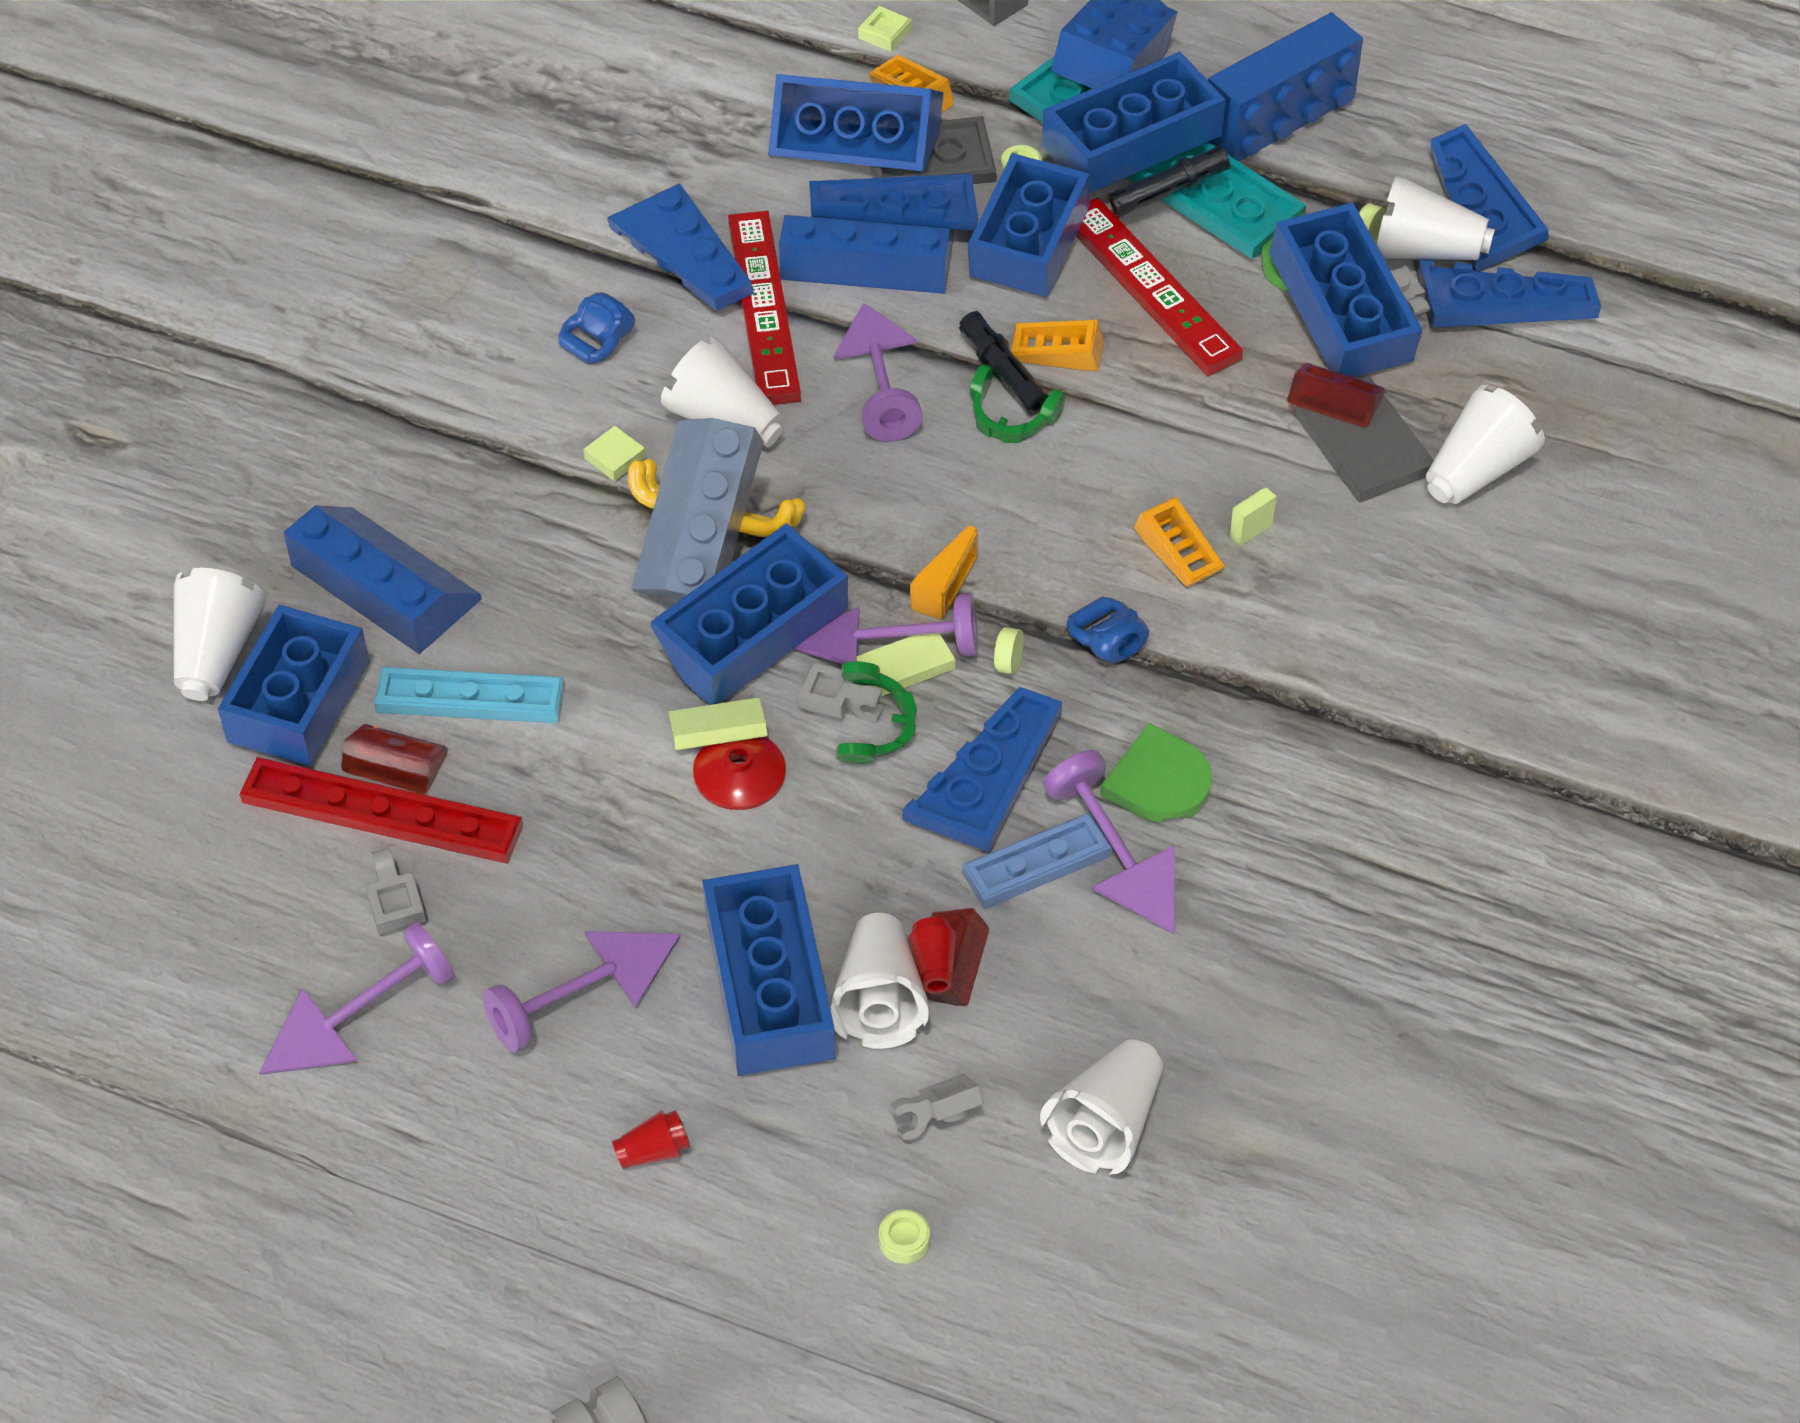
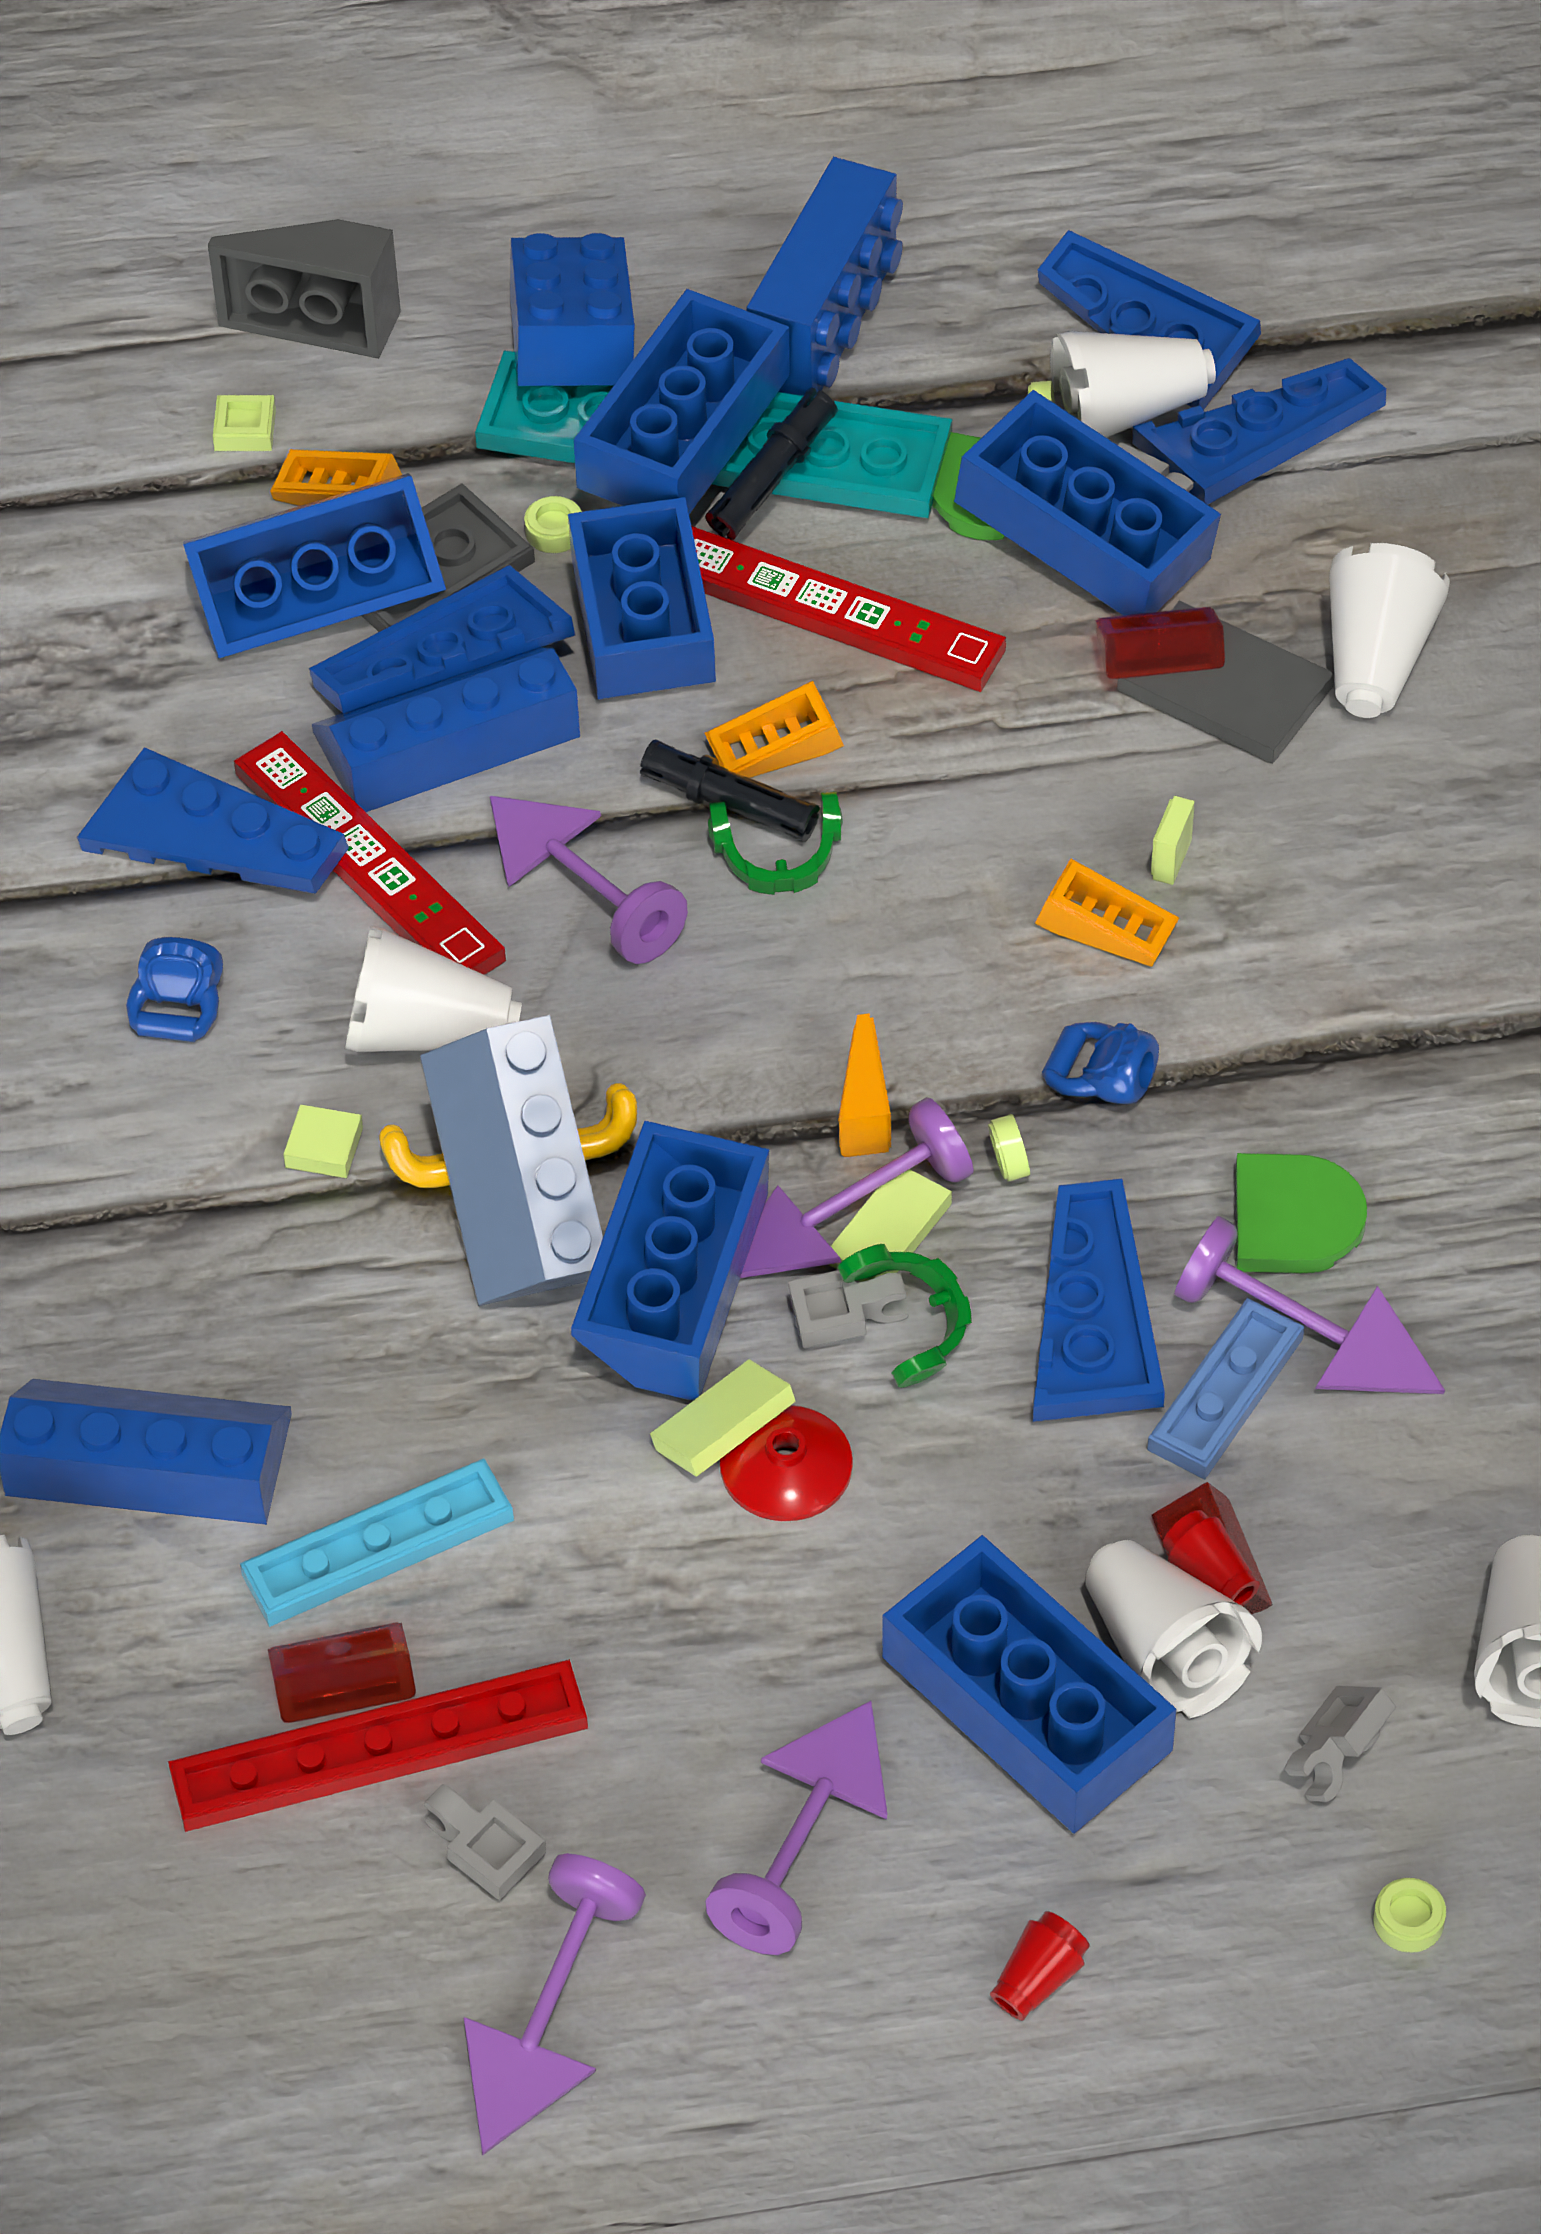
camera: 30 degrees left, 0 degrees up
(294, 685) = (156, 1643): blue brick -> none

